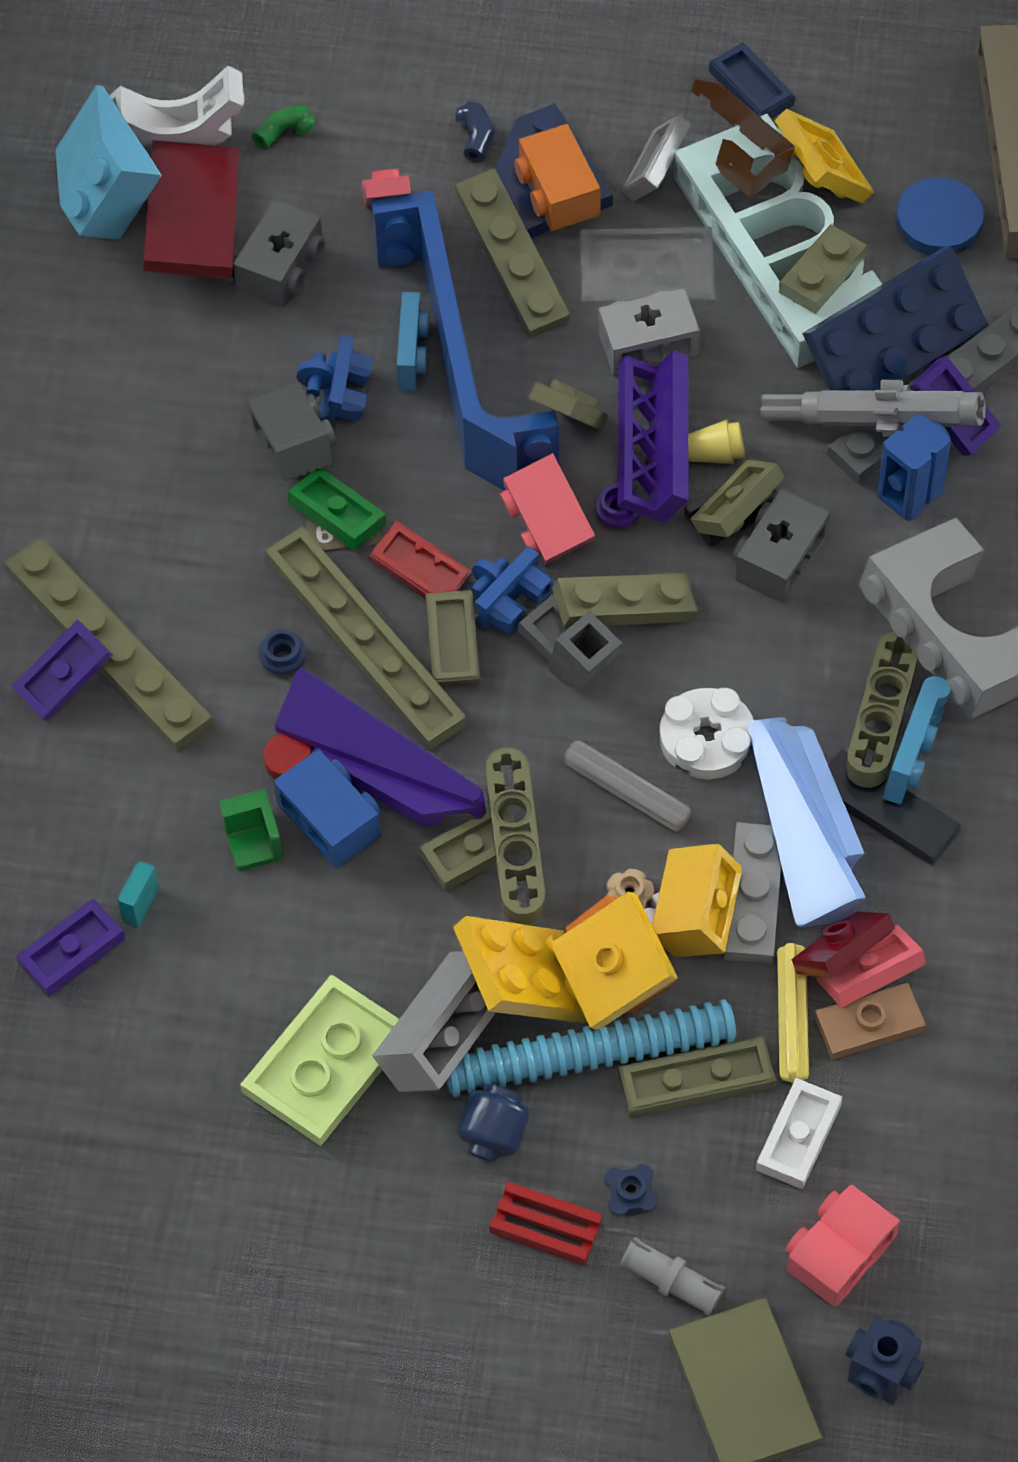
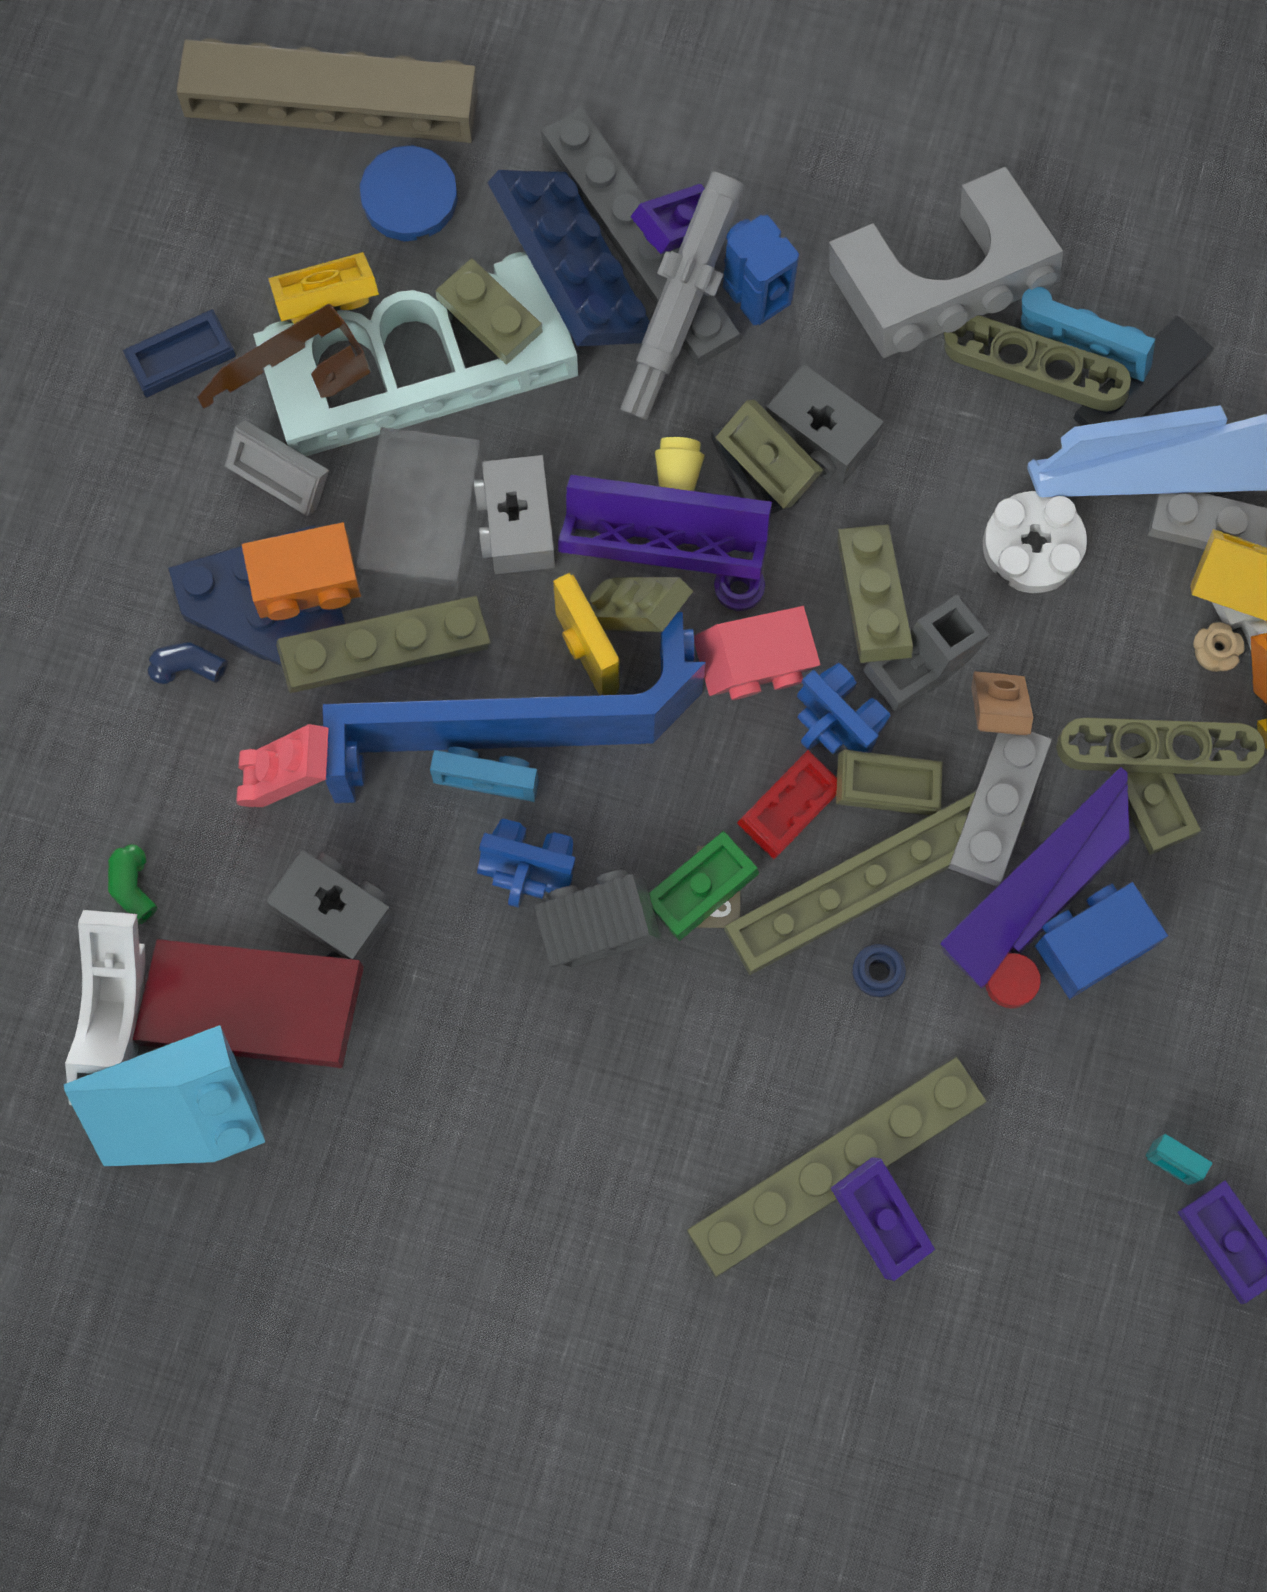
camera: 85 degrees left, 15 degrees up
(251, 830) = (1107, 1027): green panel -> none
(443, 713) = (999, 806): none -> light grey plate
(535, 703) = (1002, 703): none -> medium nougat plate
(553, 361) = (585, 635): none -> yellow plate
(627, 786) = (1090, 631): light grey axle -> none

